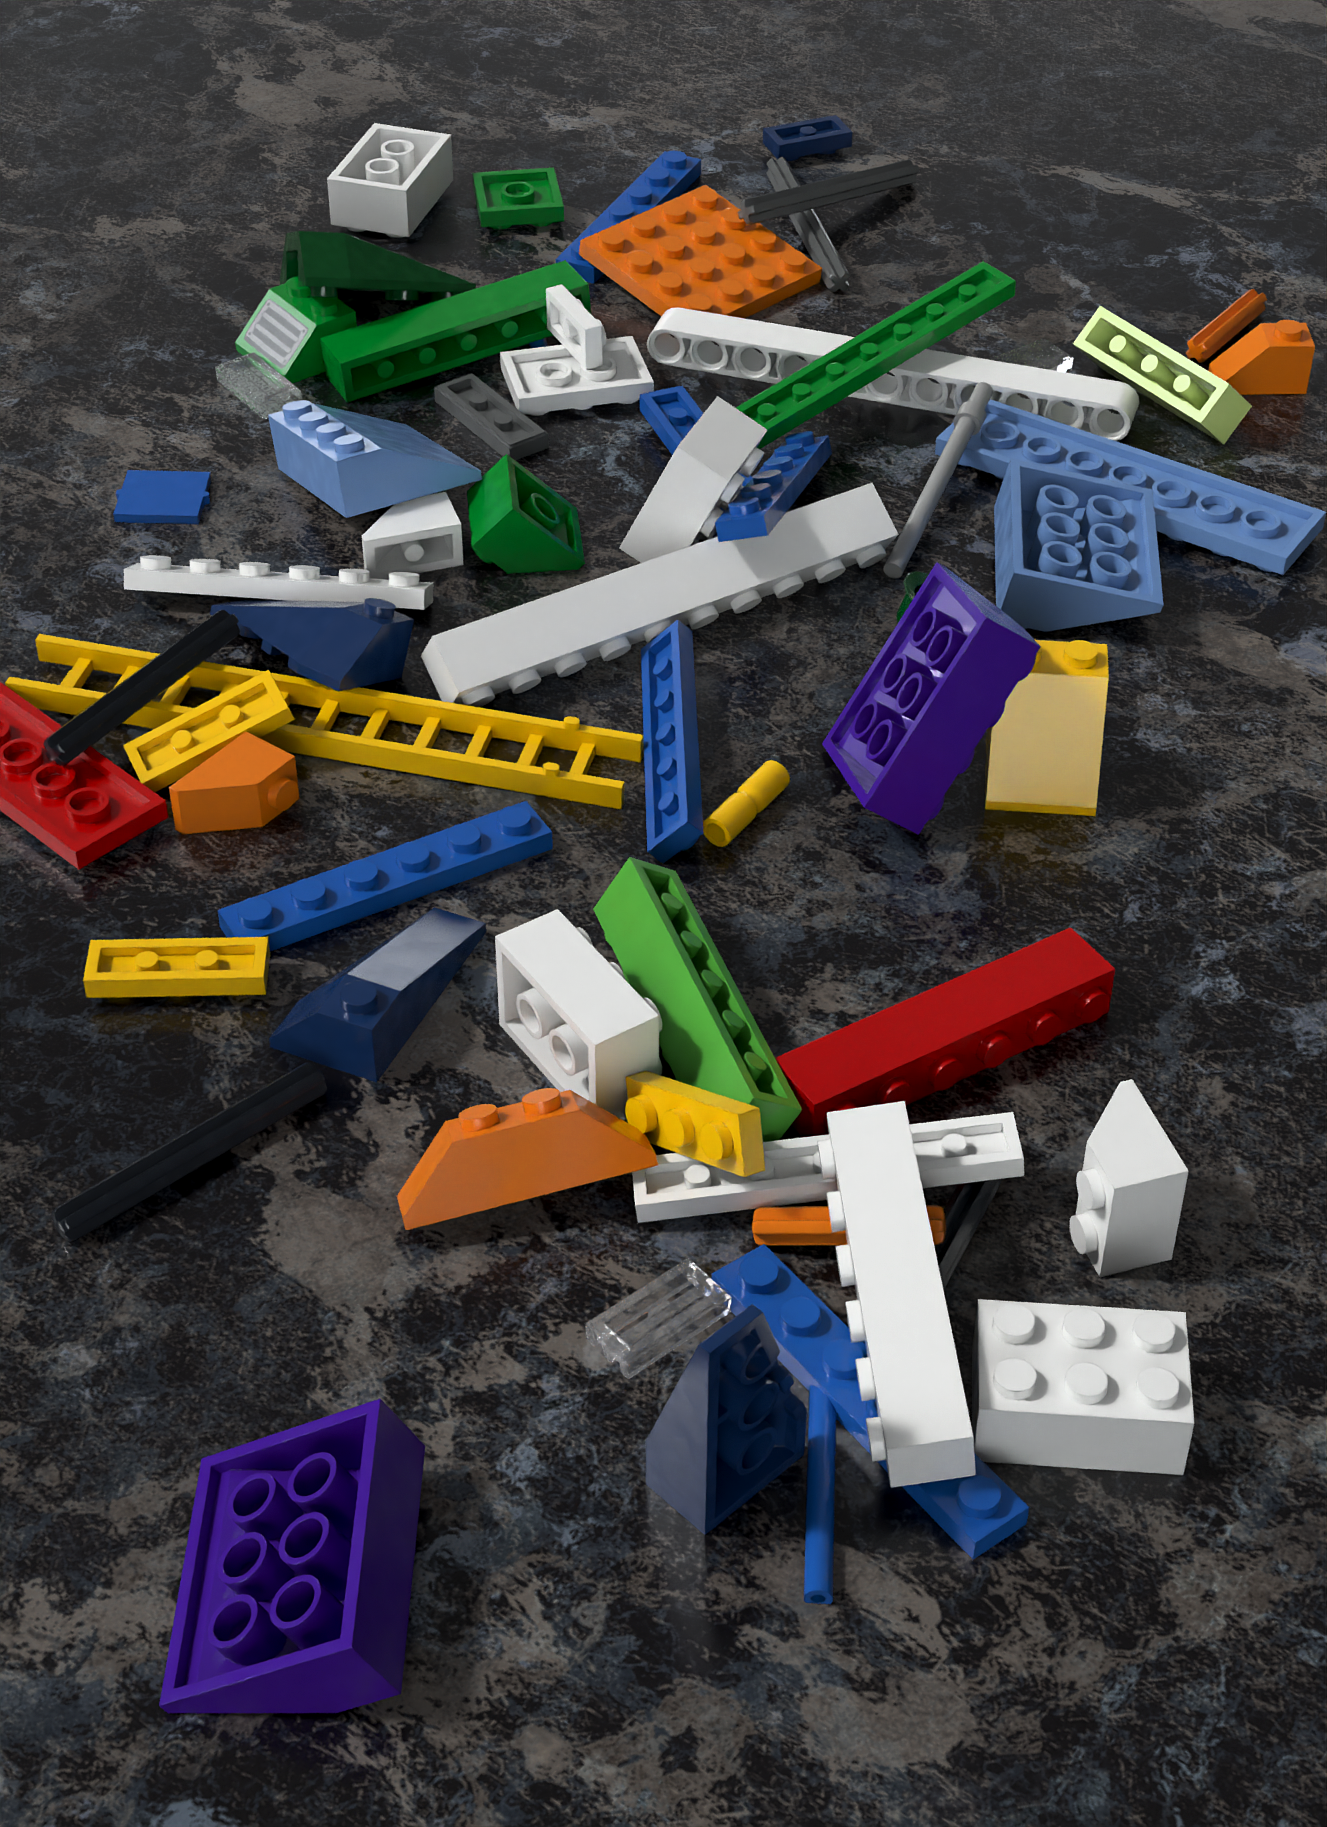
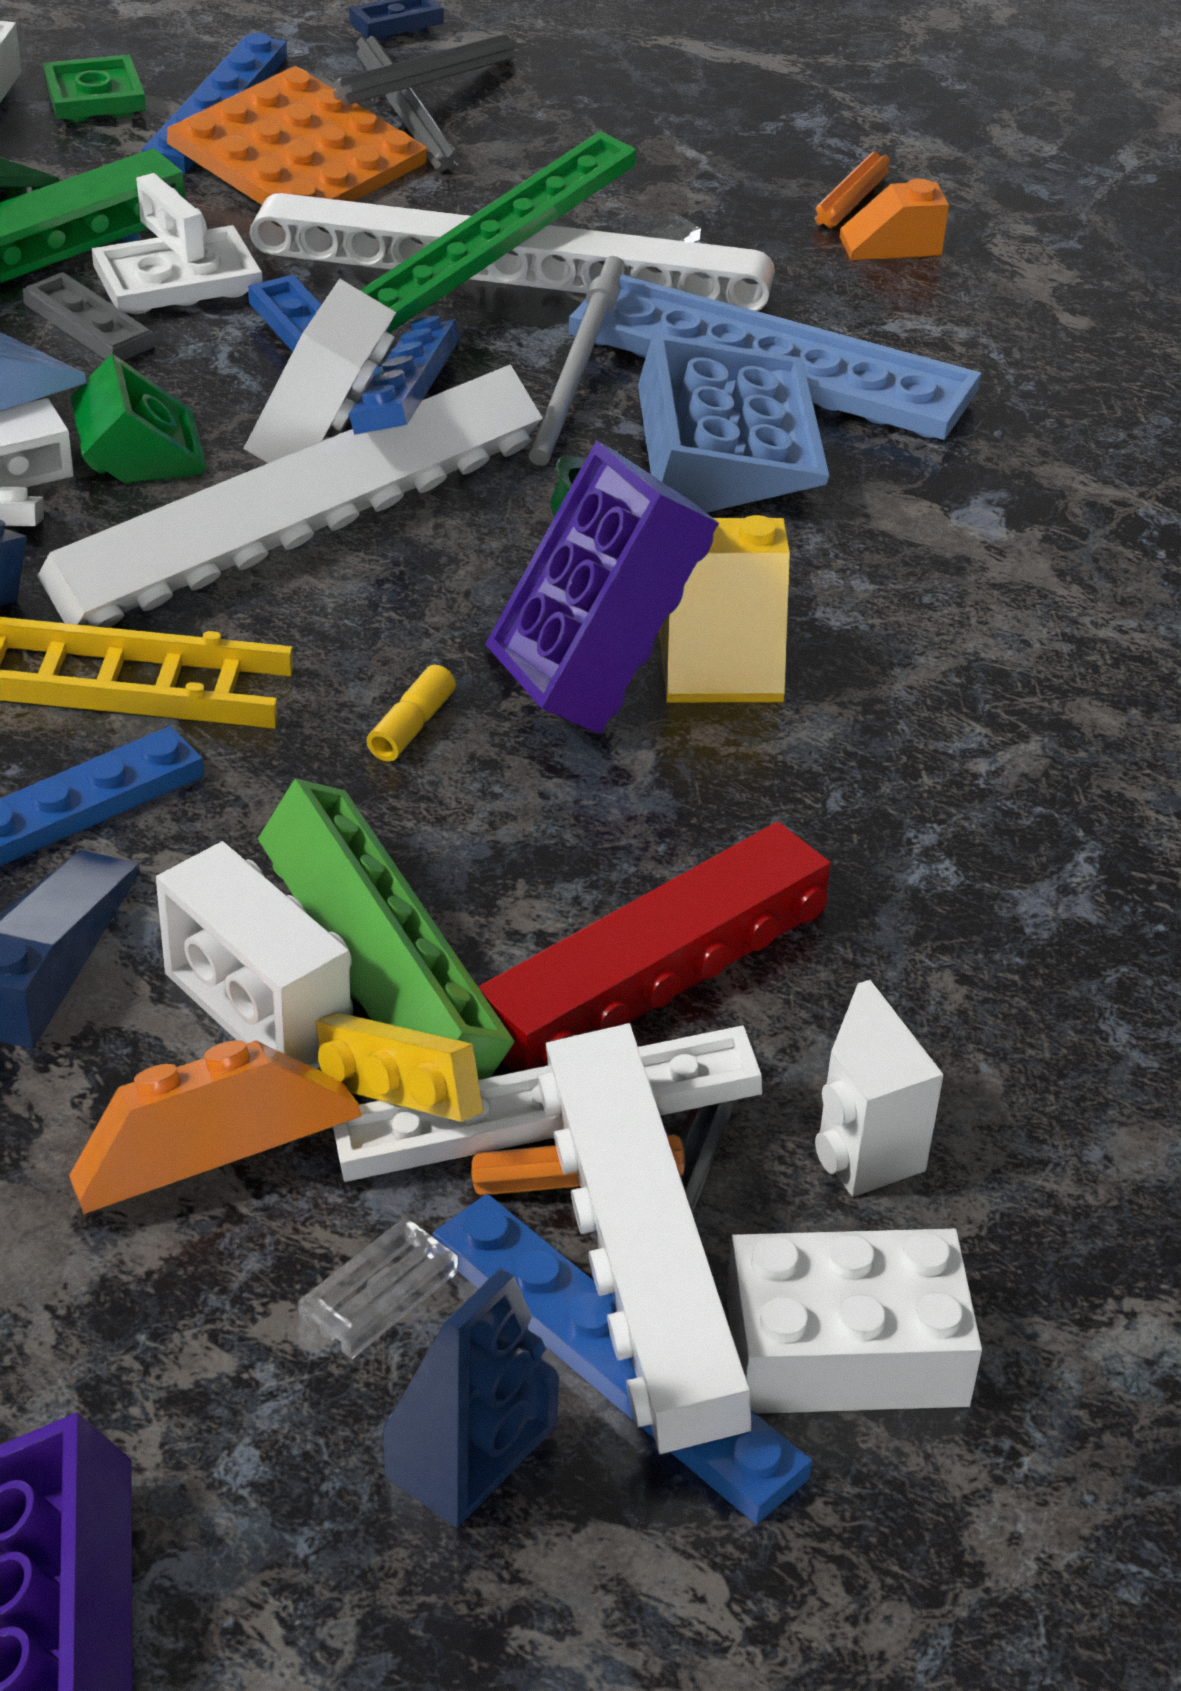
camera: 10 degrees left, 0 degrees up
(671, 743) = (323, 654): blue plate -> none
(820, 1499) = (581, 1475): blue piece -> none
(1162, 375) = (796, 241): yellowish green brick -> none

